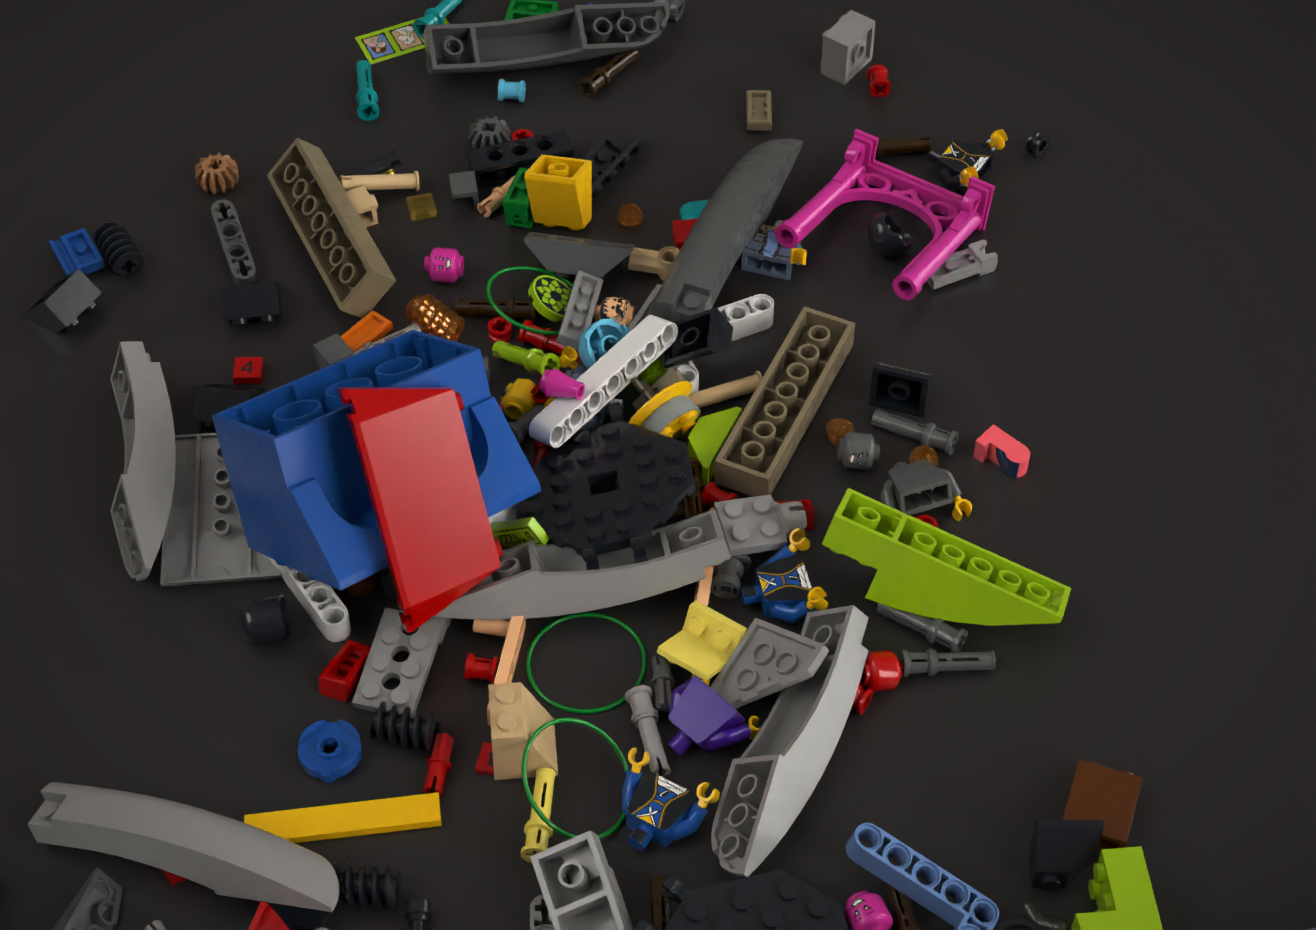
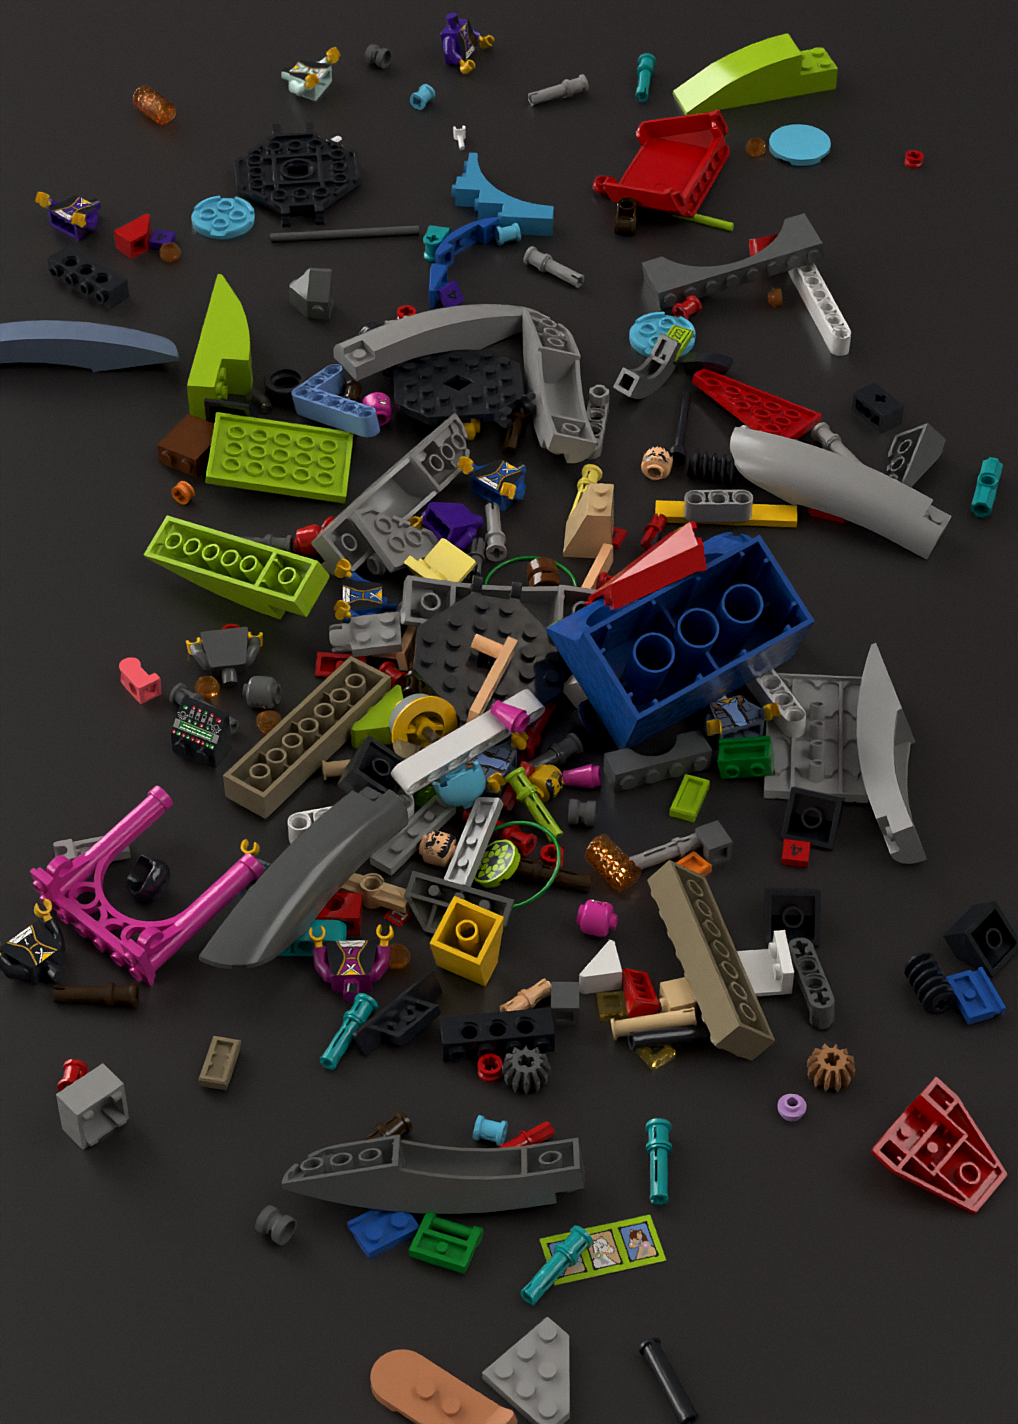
camera: 170 degrees left, 5 degrees down
(132, 118) = (941, 1149): none -> red wedge
(252, 146) = (794, 1112): none -> lavender plate
(278, 248) = (771, 968): none -> white bracket
(340, 810) = (718, 505): none -> light grey beam
(389, 198) = (639, 998): none -> red slope
(433, 222) = (602, 972): none -> white slope
(446, 887) = (656, 463): none -> light nougat head
(479, 91) = (531, 1137): none -> red axle
(517, 203) = (502, 974): green hinge -> none
(524, 775) = (563, 505): green piece -> none
(568, 653) = (542, 572): none -> reddish brown wheel
(586, 457) = (503, 656): none -> light nougat piece
(663, 130) = (352, 1020): none -> teal pin
(668, 193) = (351, 964): none -> torso
(969, 785) = (279, 457): none -> lime plate
(1076, 726) = (183, 492): none -> orange bush

